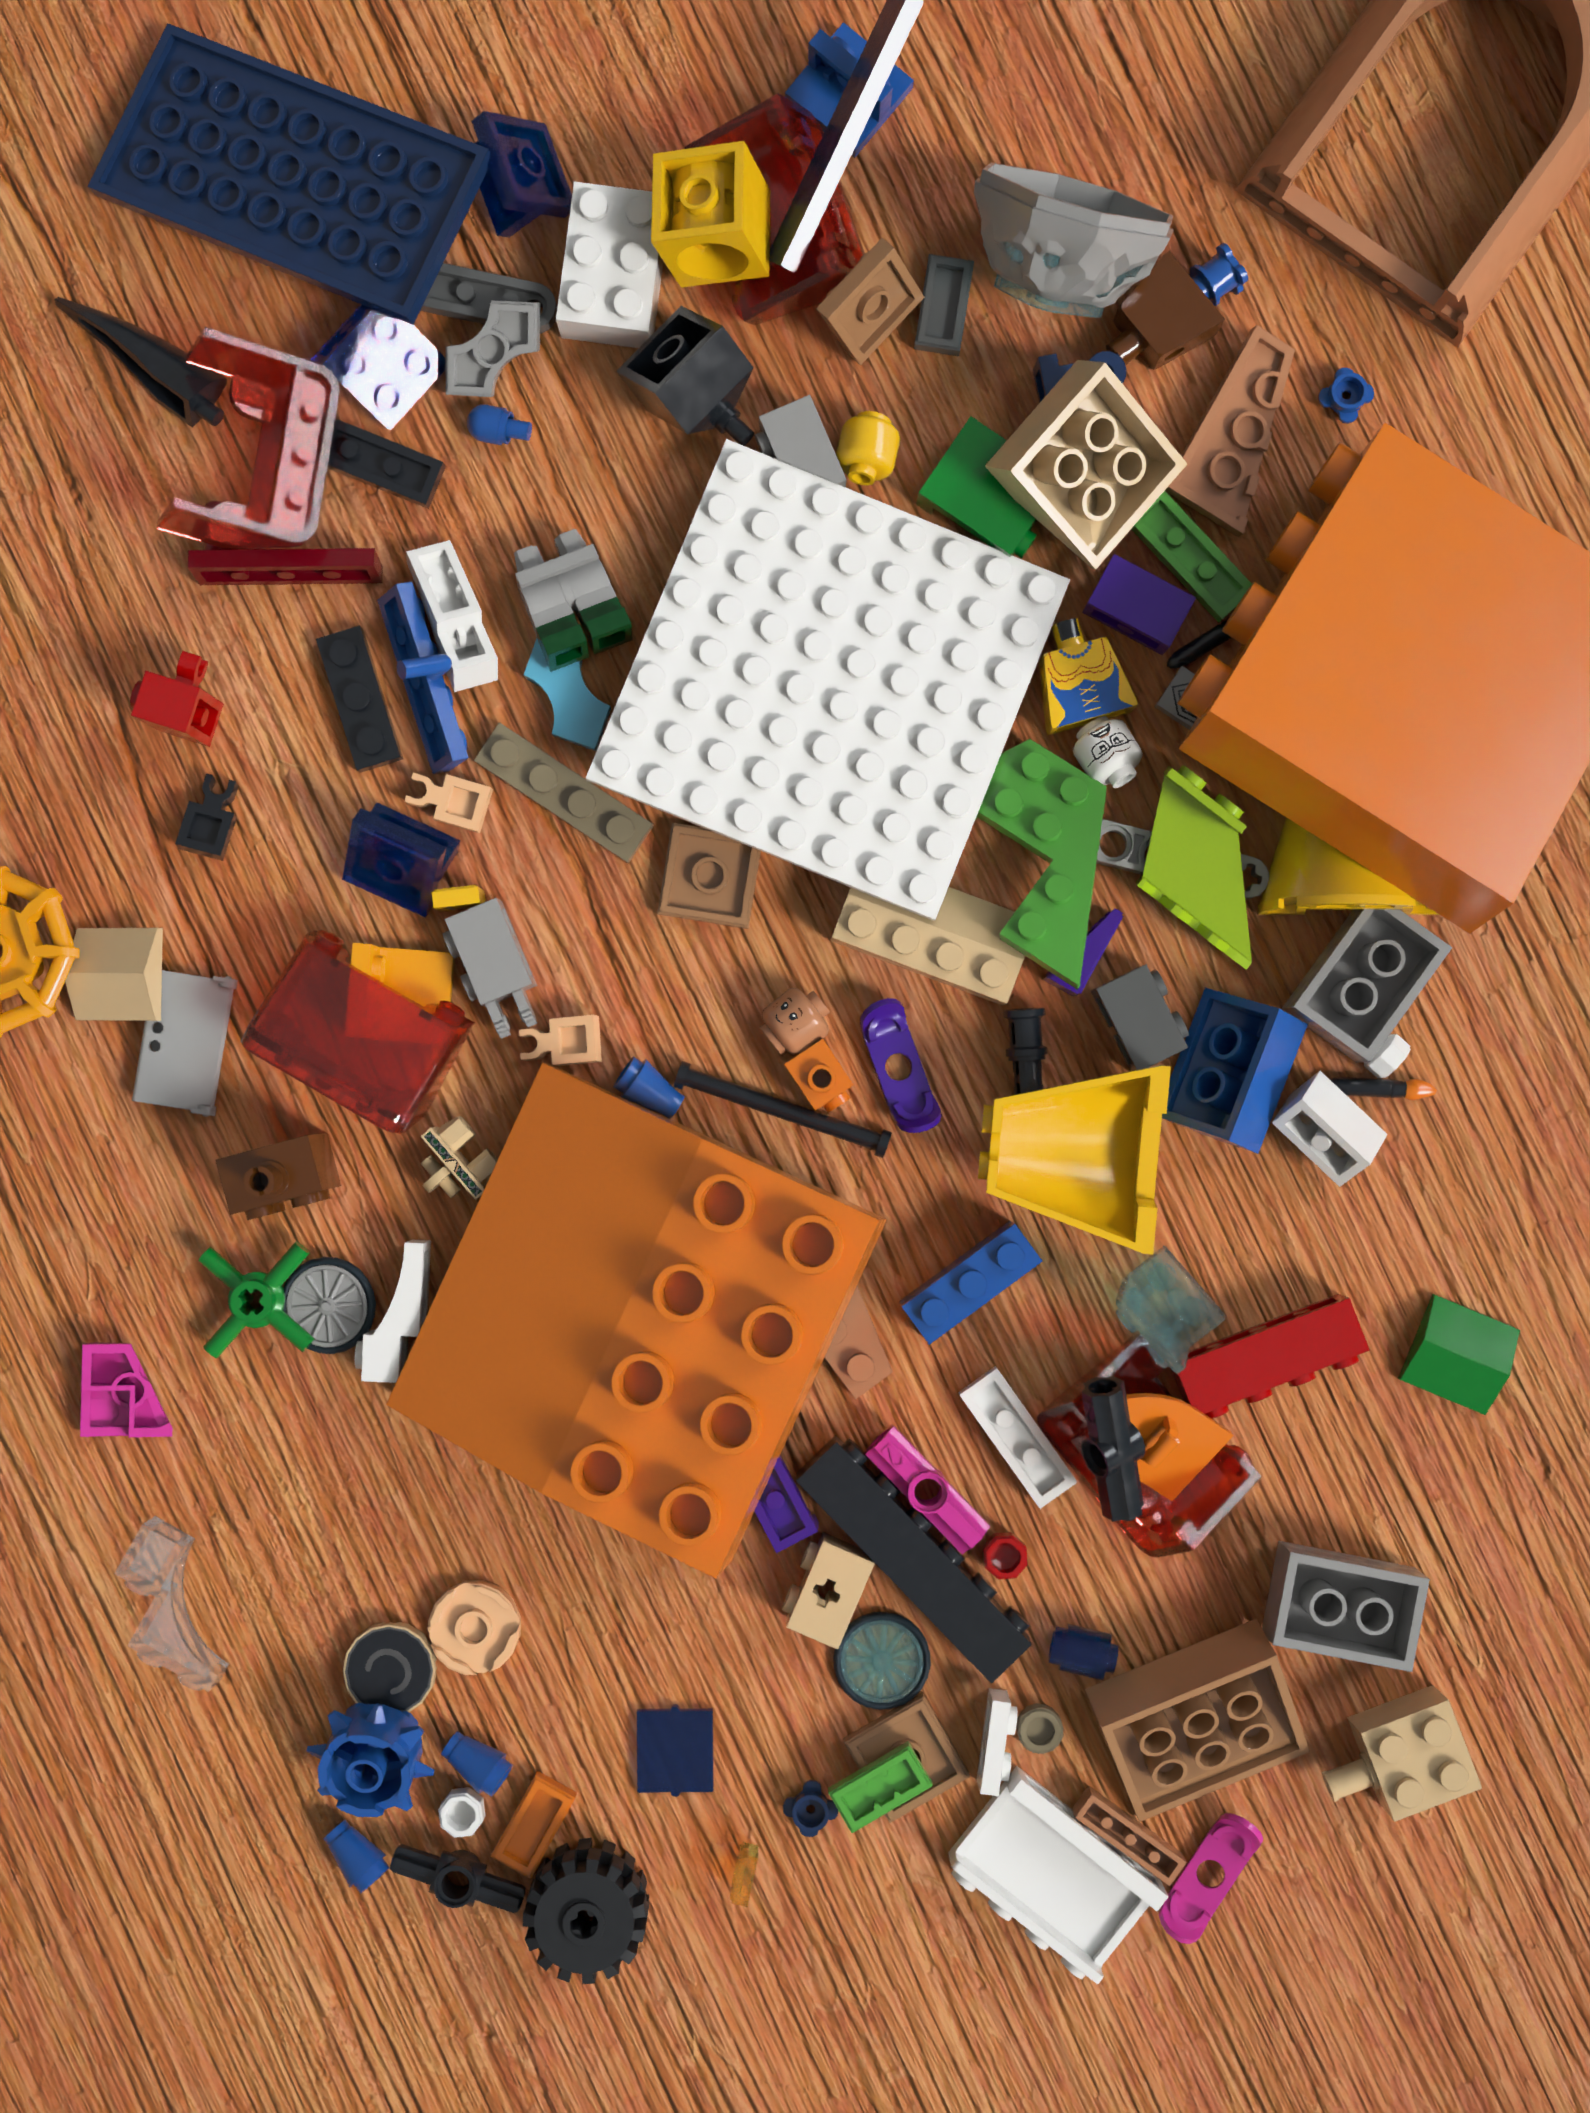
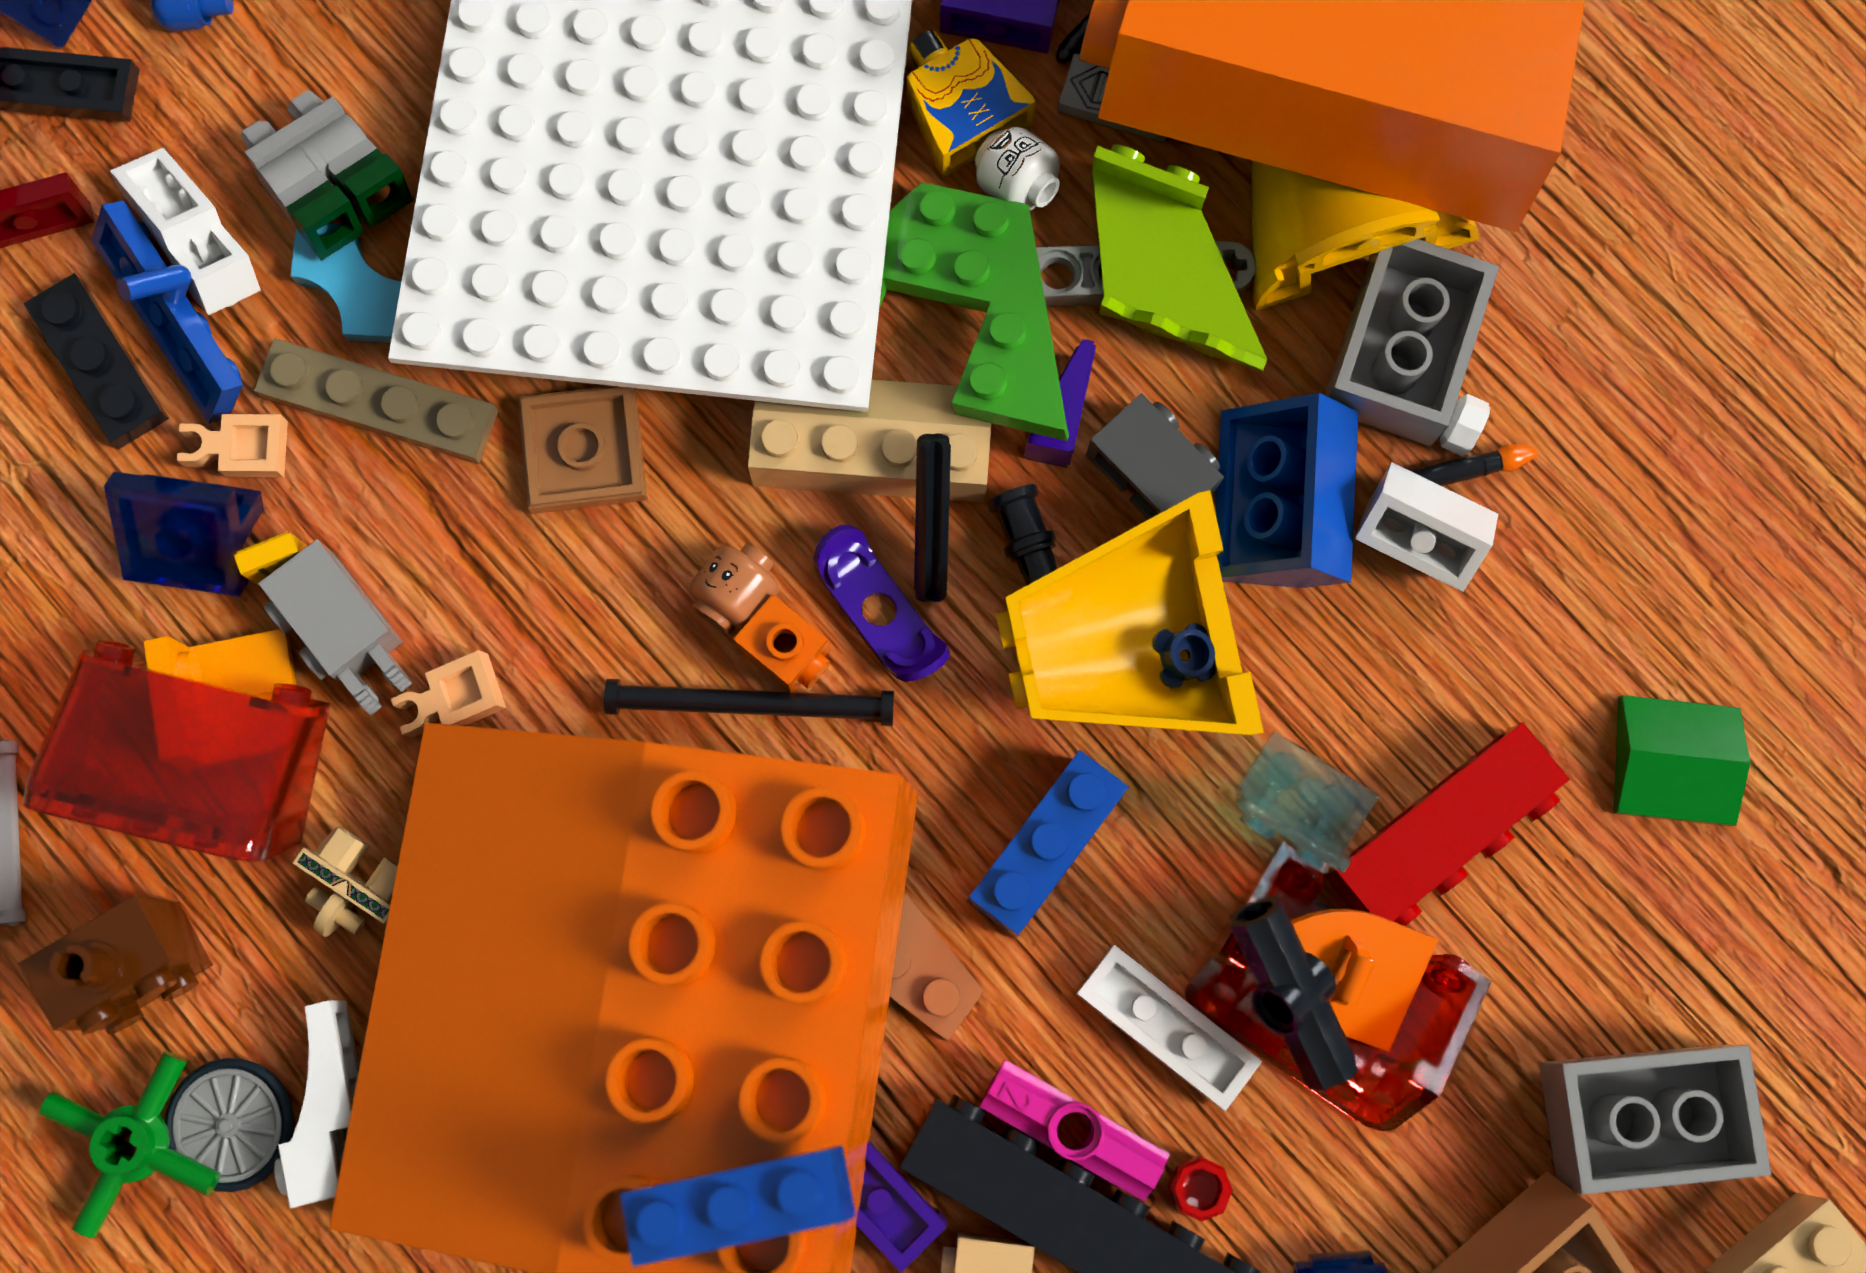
camera: 25 degrees left, 10 degrees down
(648, 1088) = (569, 715): blue cone -> none
(683, 1491) = (737, 1206): none -> blue brick
(958, 1015) = (932, 517): none -> black axle
(1127, 1175) = (1200, 652): none -> dark blue plate

